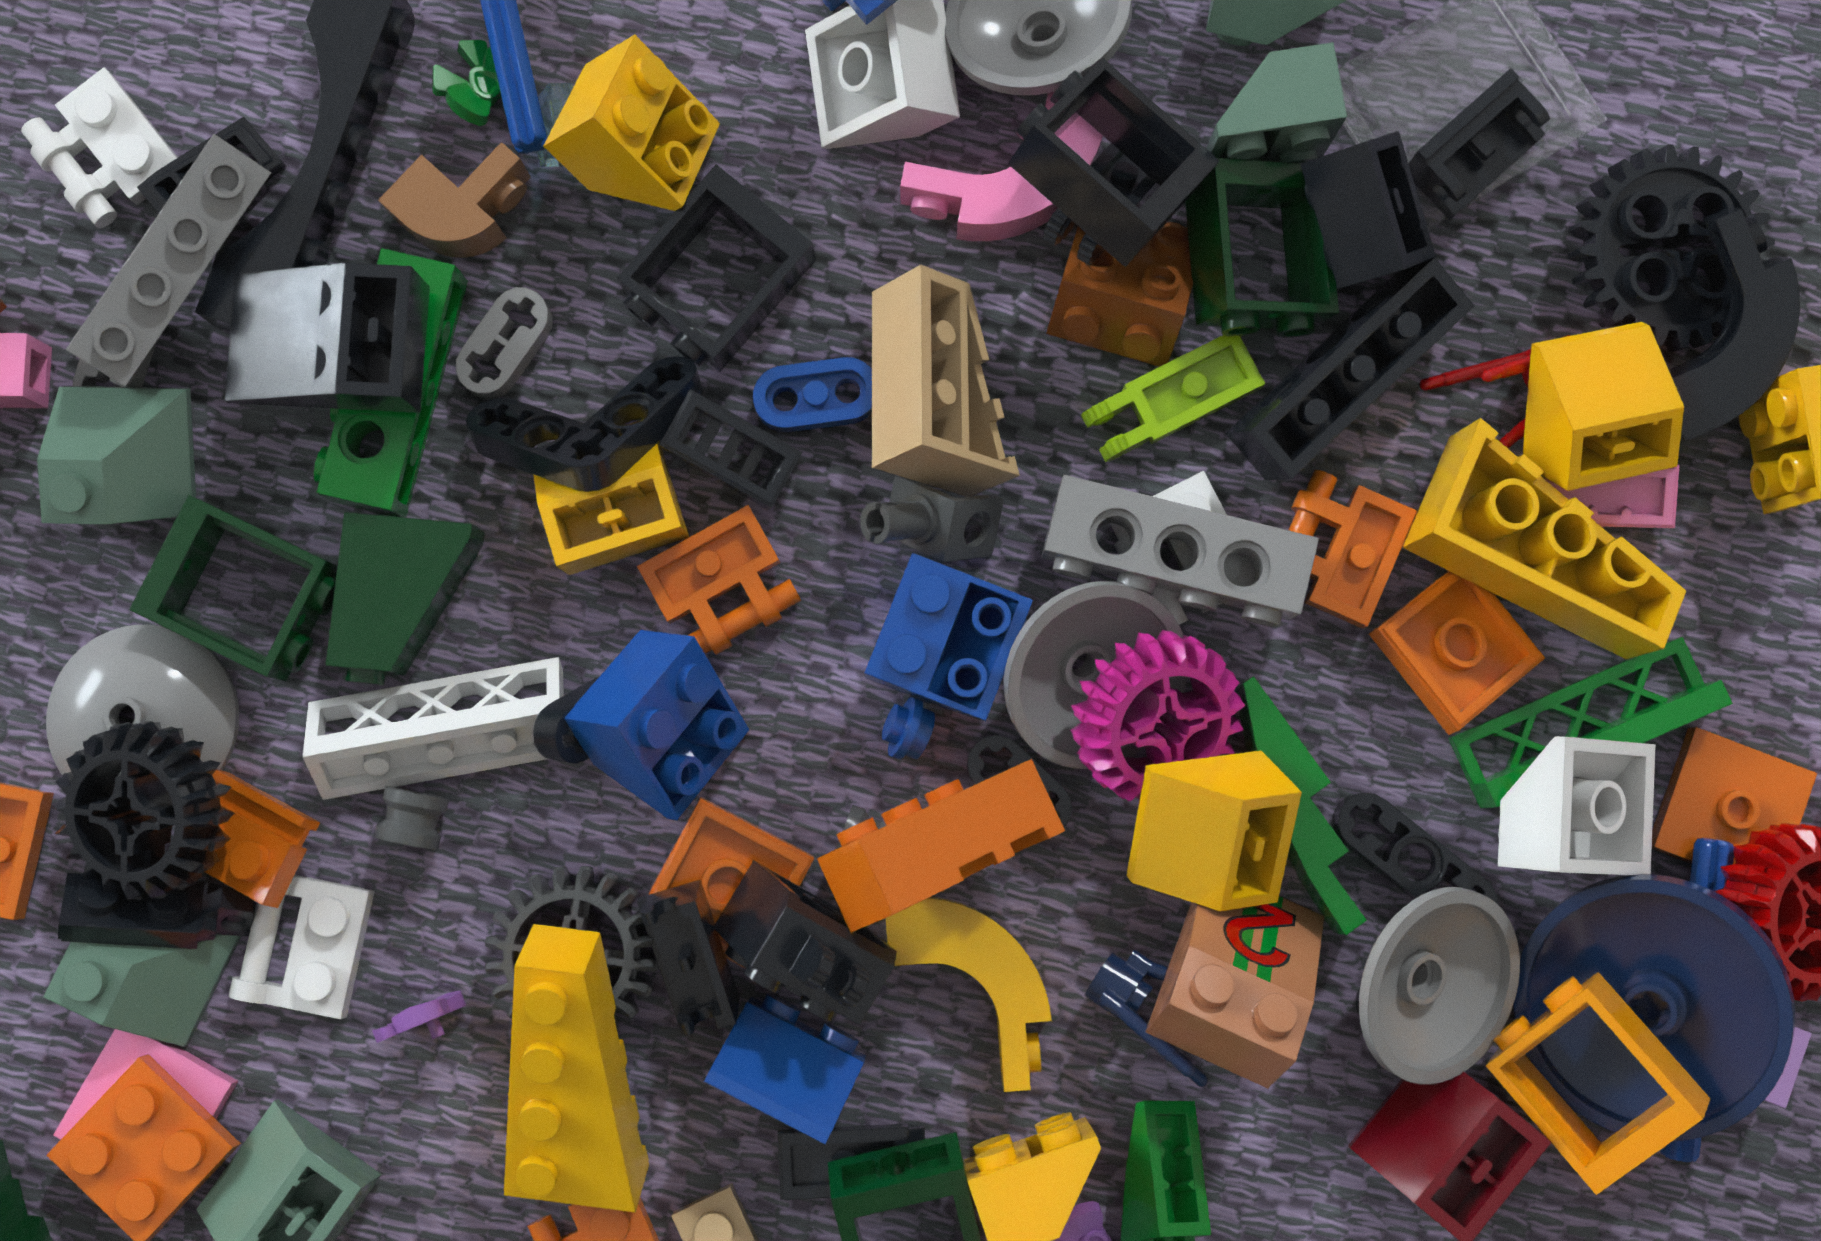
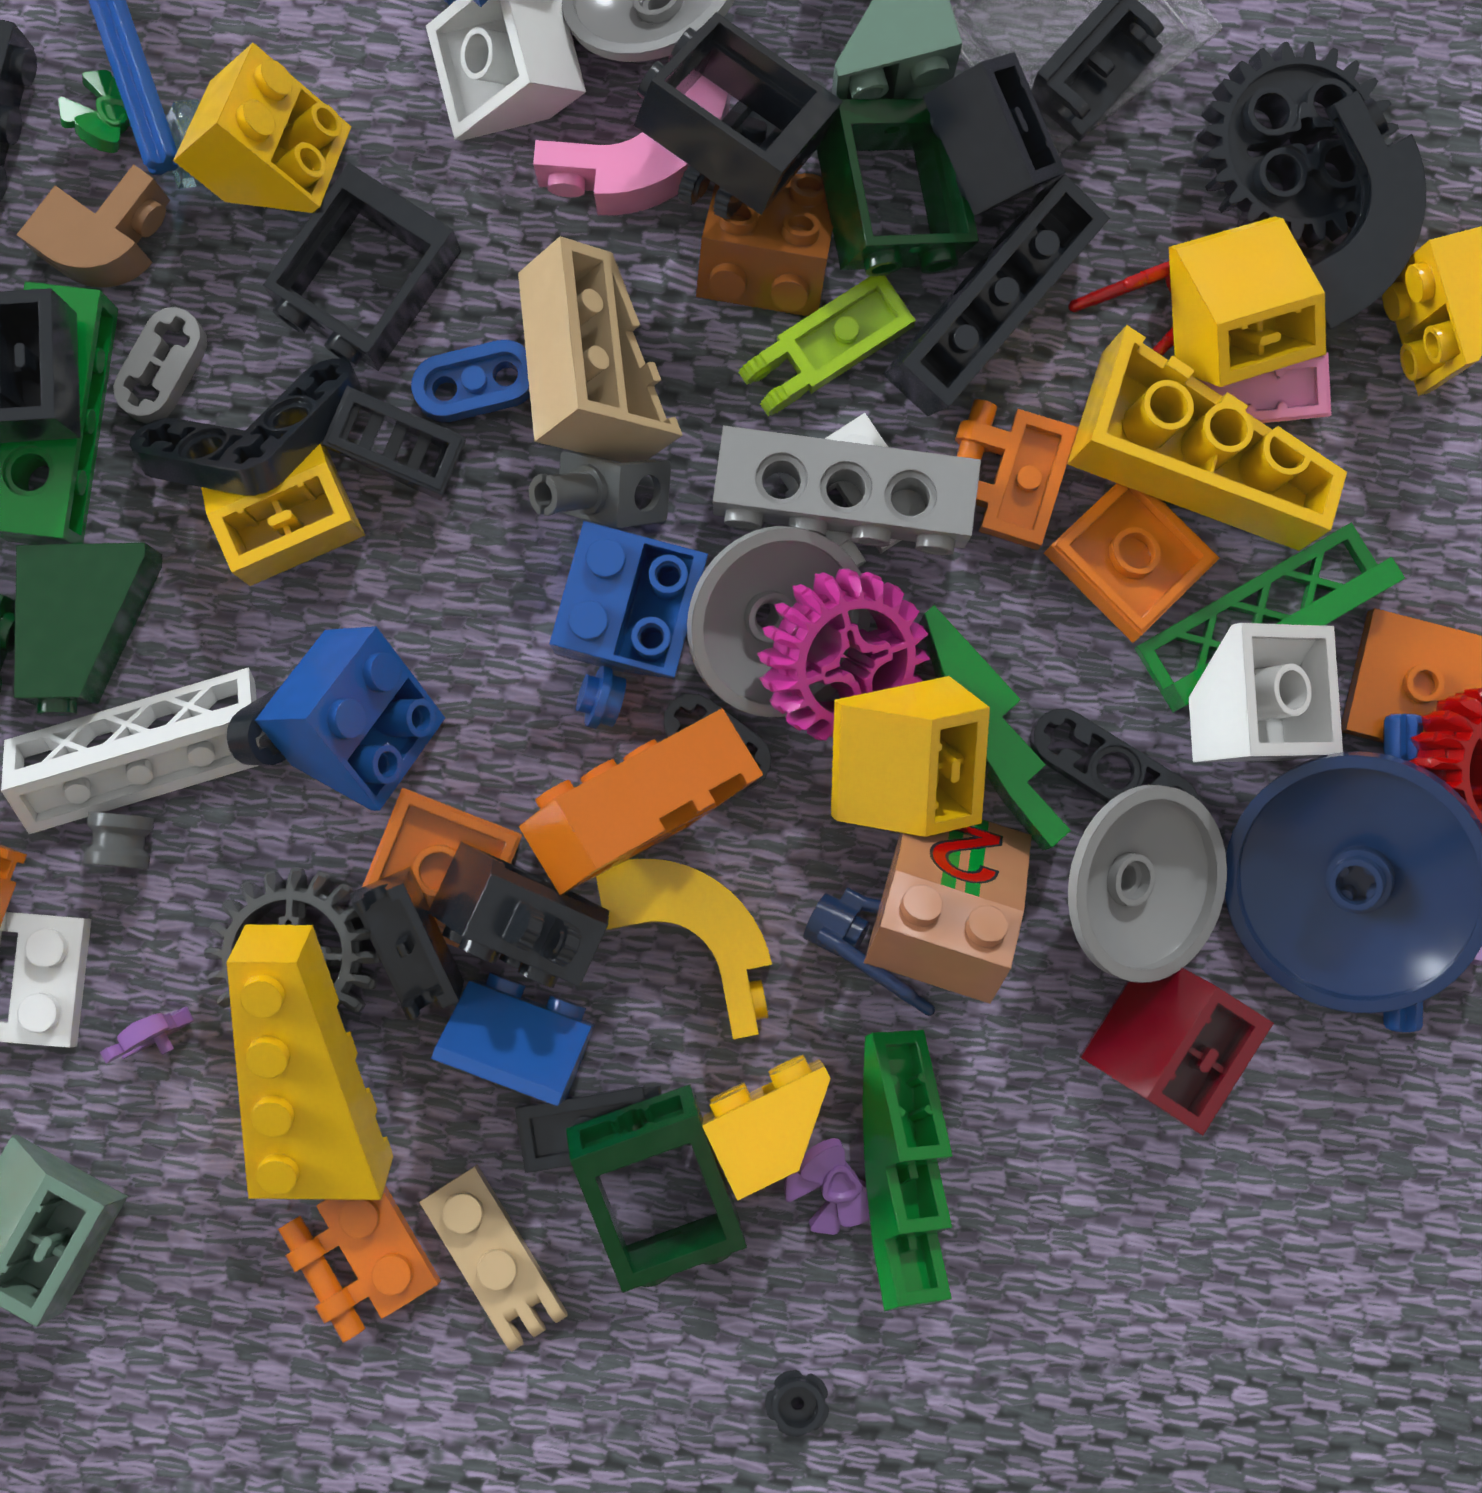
camera: 10 degrees left, 0 degrees up
(709, 566) = (390, 559): orange plate -> none
(1638, 1140) = (1316, 1038): light orange window -> none

